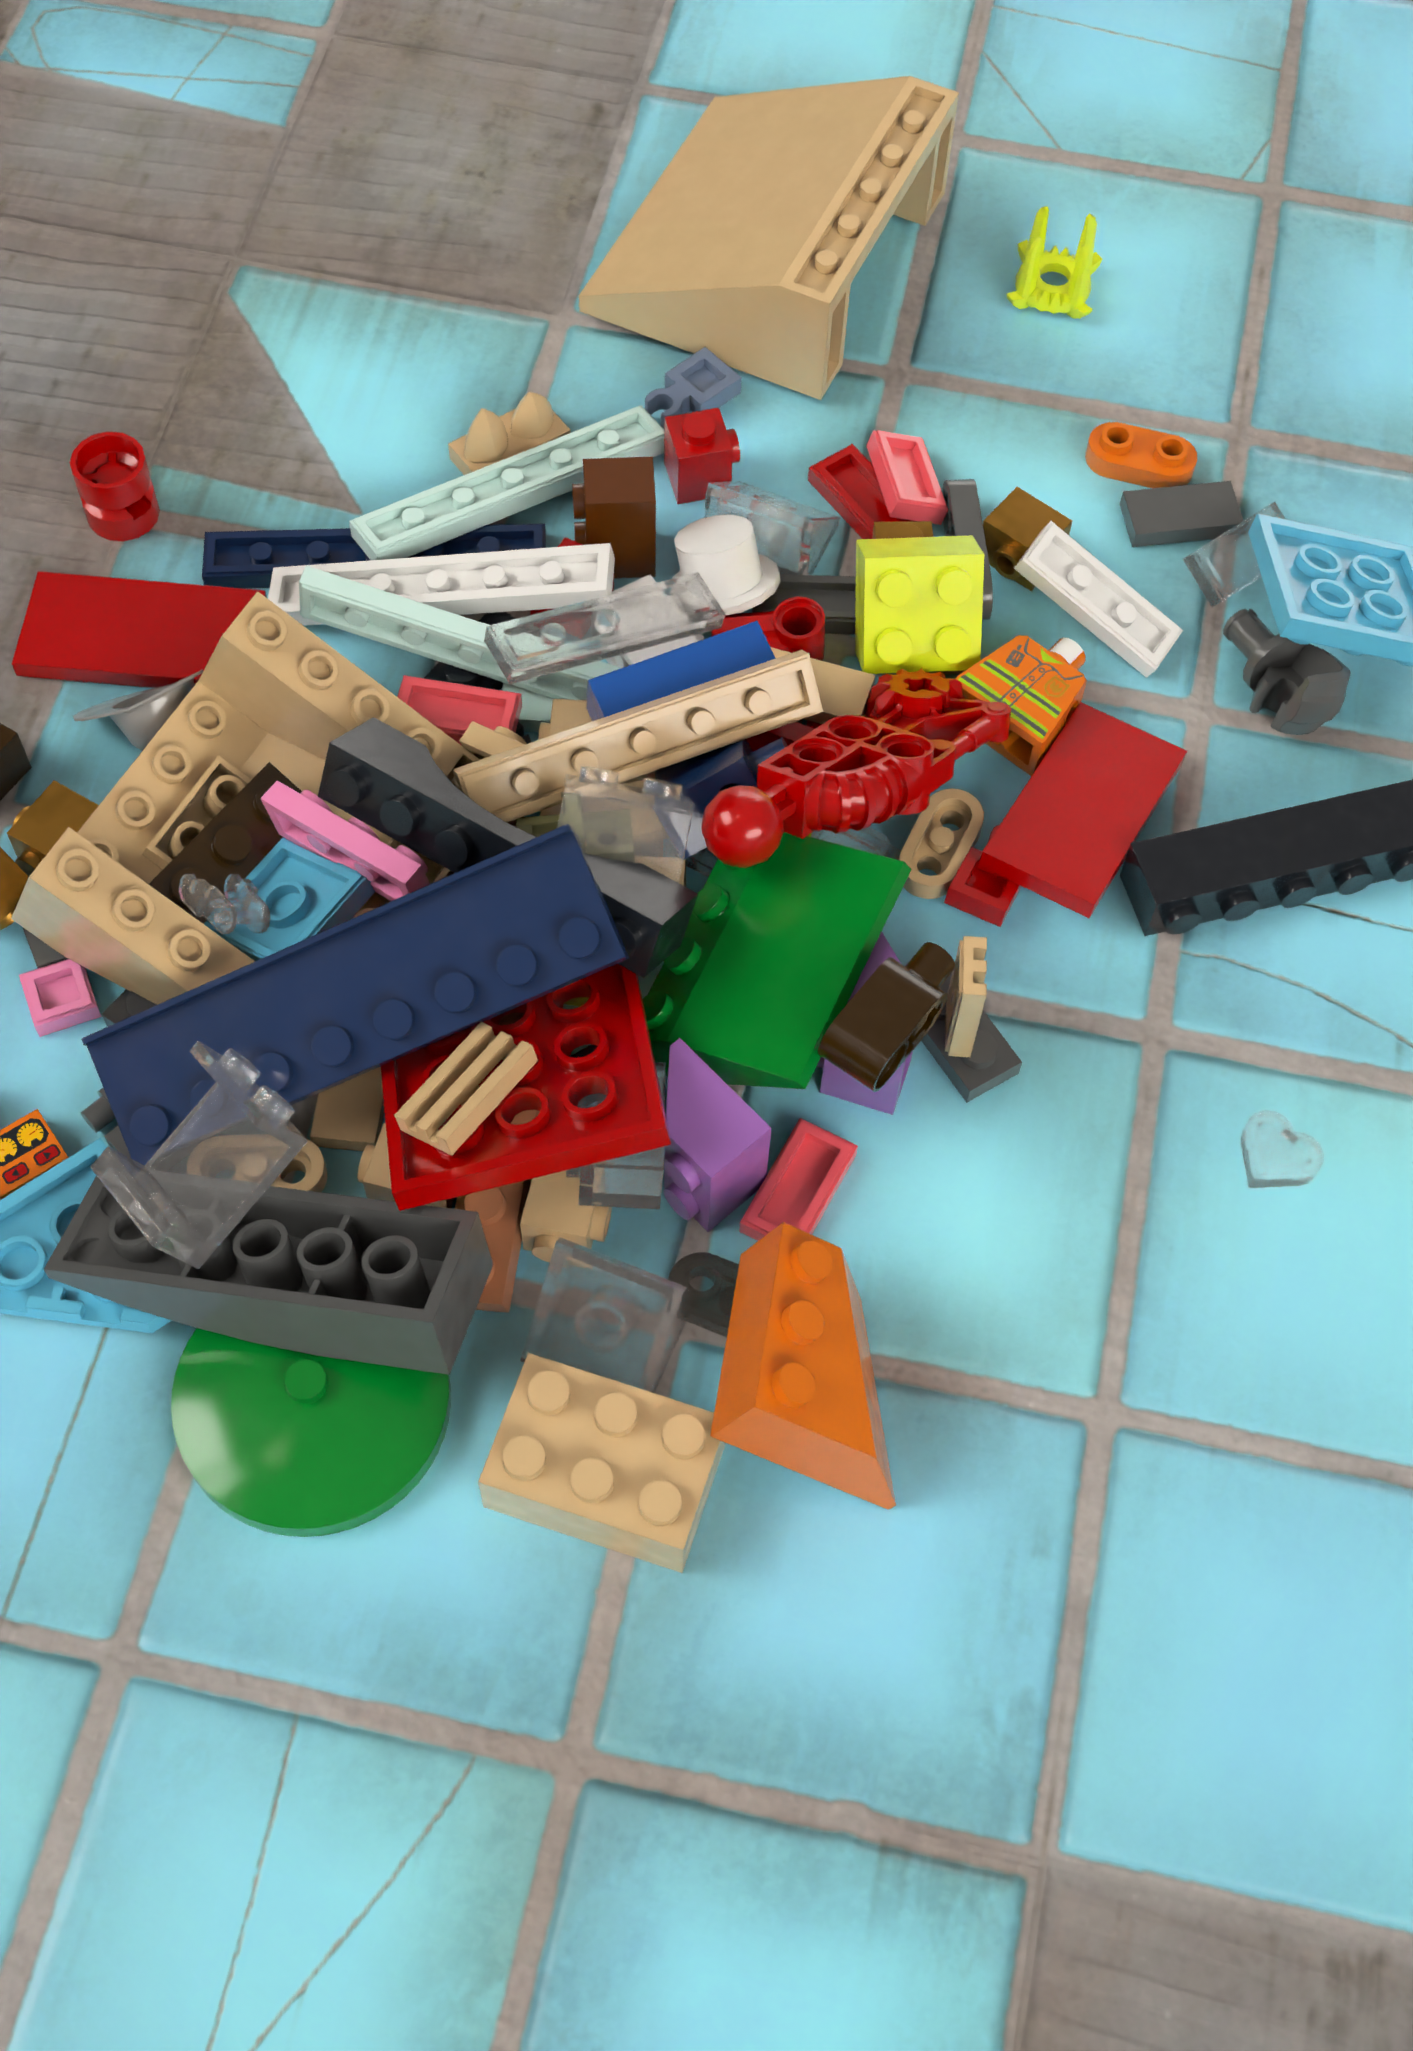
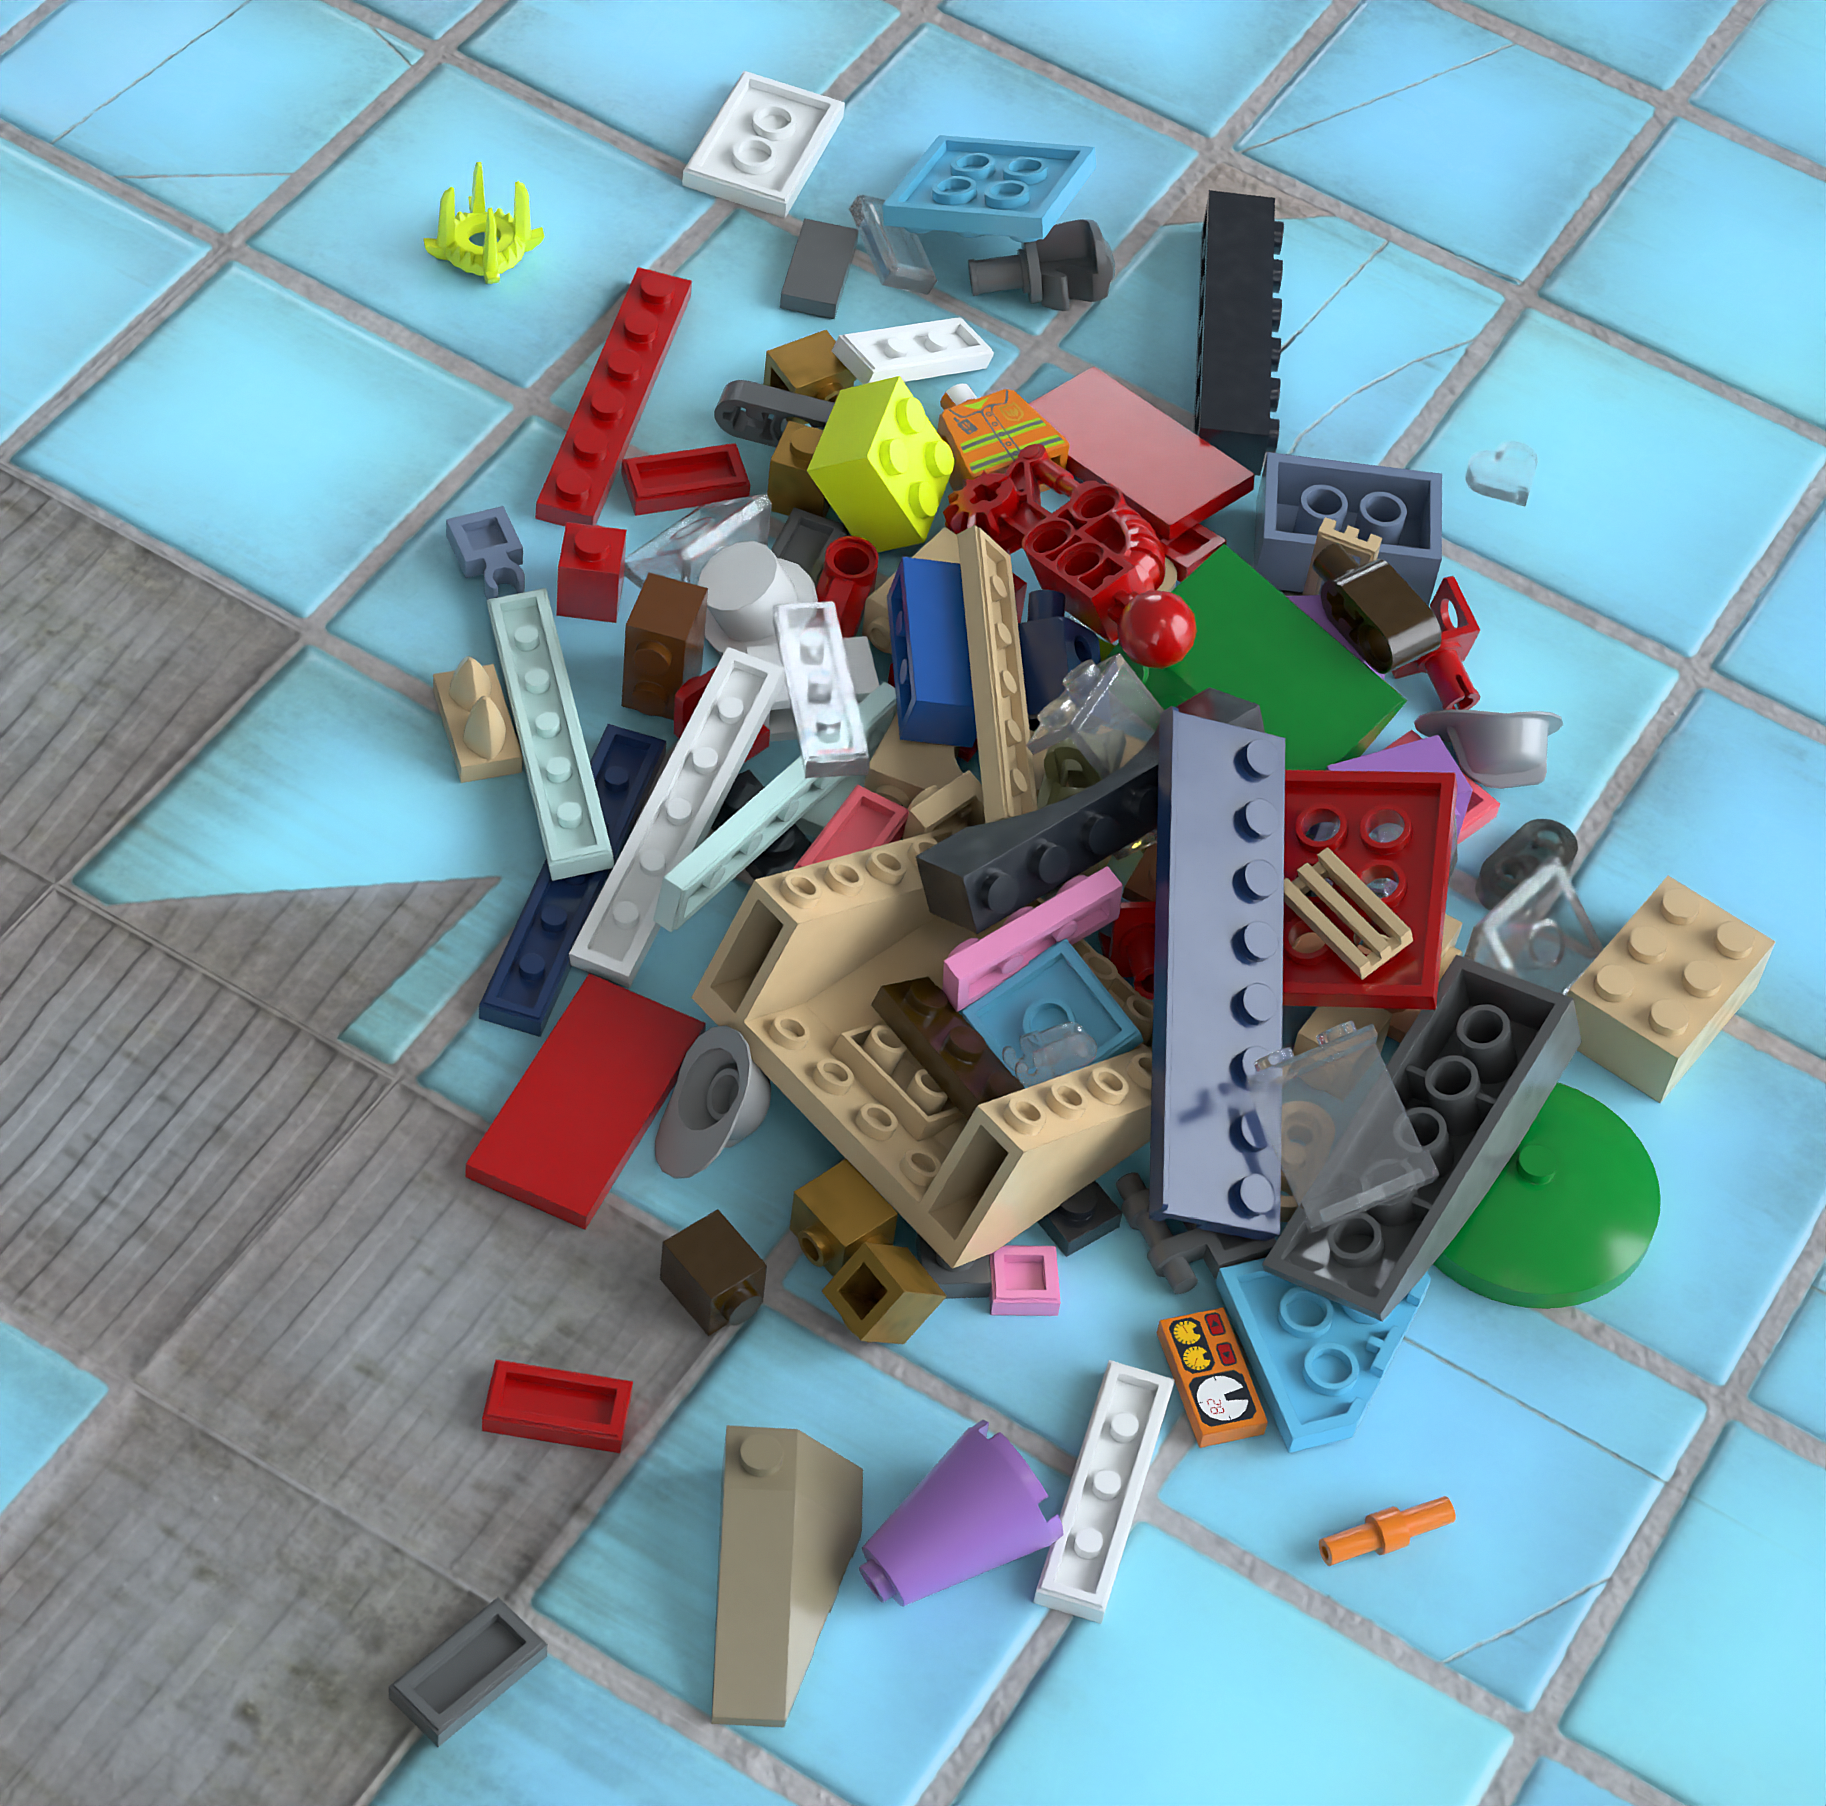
camera: 75 degrees left, 10 degrees down
(115, 486) = (394, 1054): red wheel -> none
(771, 220) = (326, 395): tan slope -> none
(801, 1367) = (1628, 810): orange wedge -> none
(857, 1220) = (1495, 746): none -> light grey piece
(906, 477) = (691, 432): coral tile -> none
(941, 419) = (614, 399): none -> red plate
(967, 1146) = (1445, 663): none -> red bracket
(1078, 1011) = (1377, 500): none -> sand blue brick
(1140, 455) = (735, 269): orange plate -> none
(1315, 431) = (763, 144): none -> white tile

